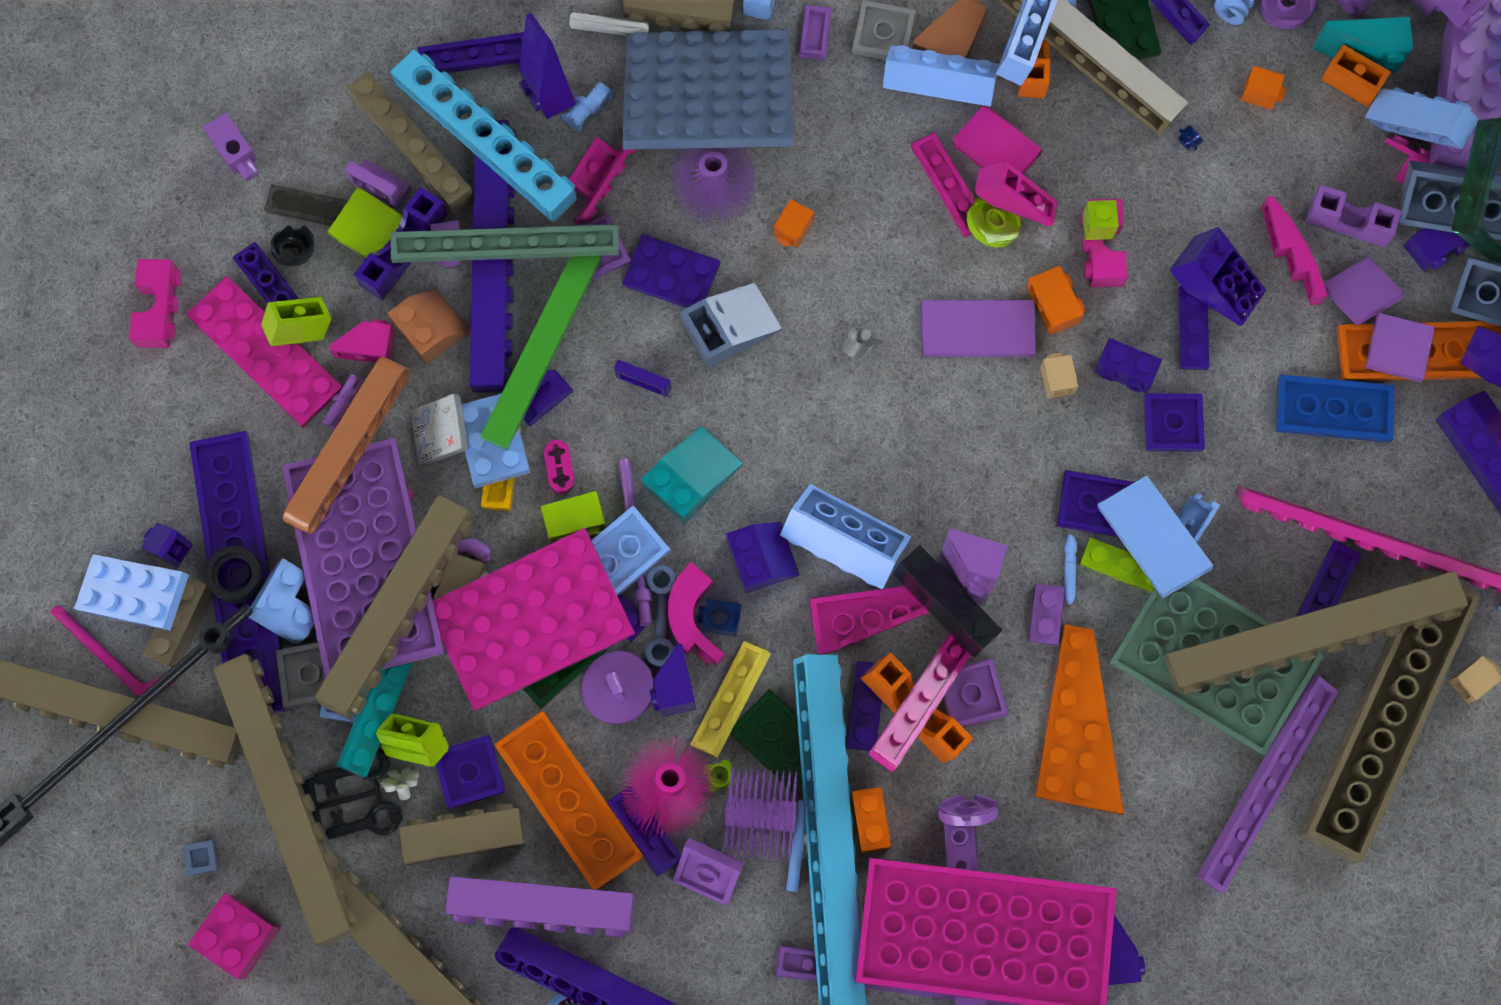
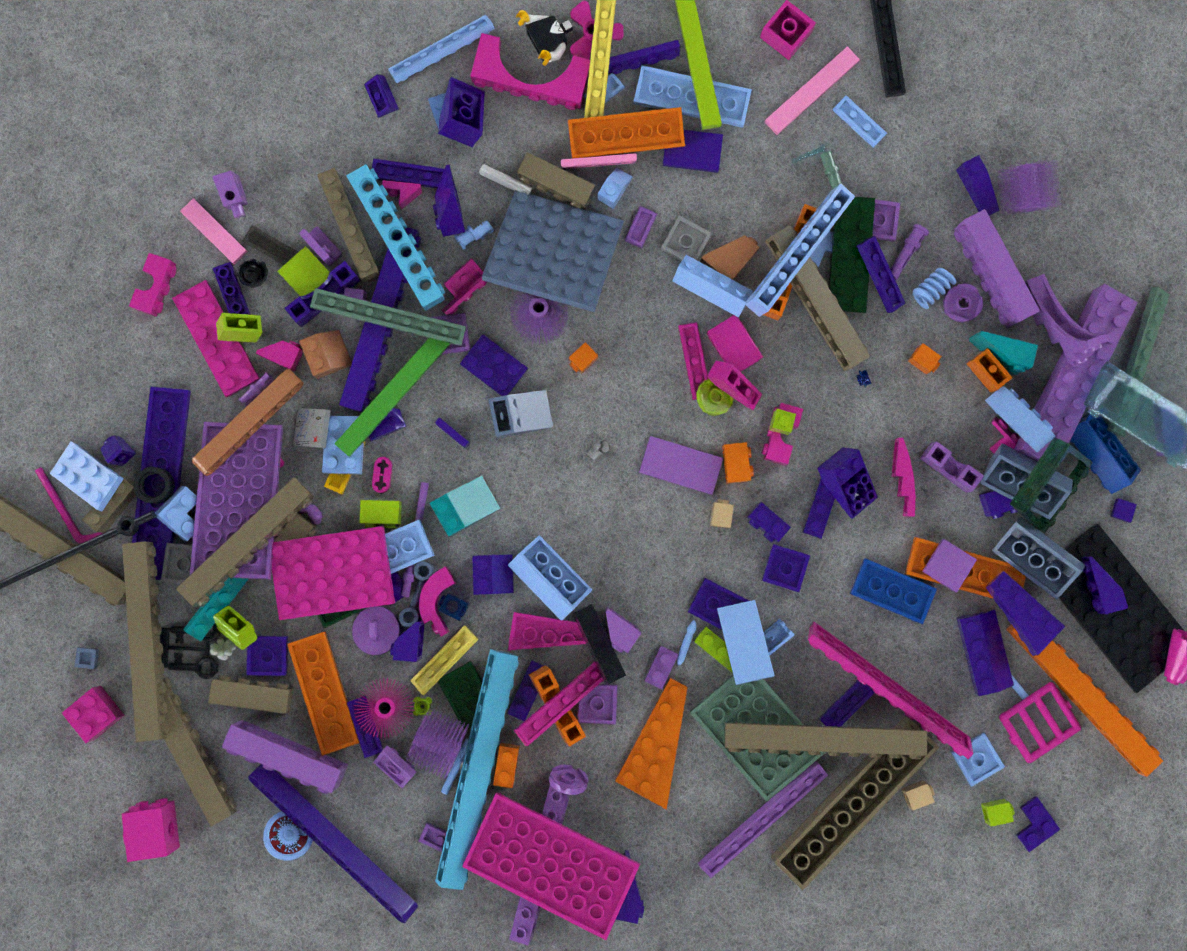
camera: 15 degrees right, 10 degrees up
(219, 208) = (213, 231): none -> bright pink tile
(476, 75) = (407, 191): none -> dark pink slope
(1363, 291) = (940, 519): medium lavender tile -> none

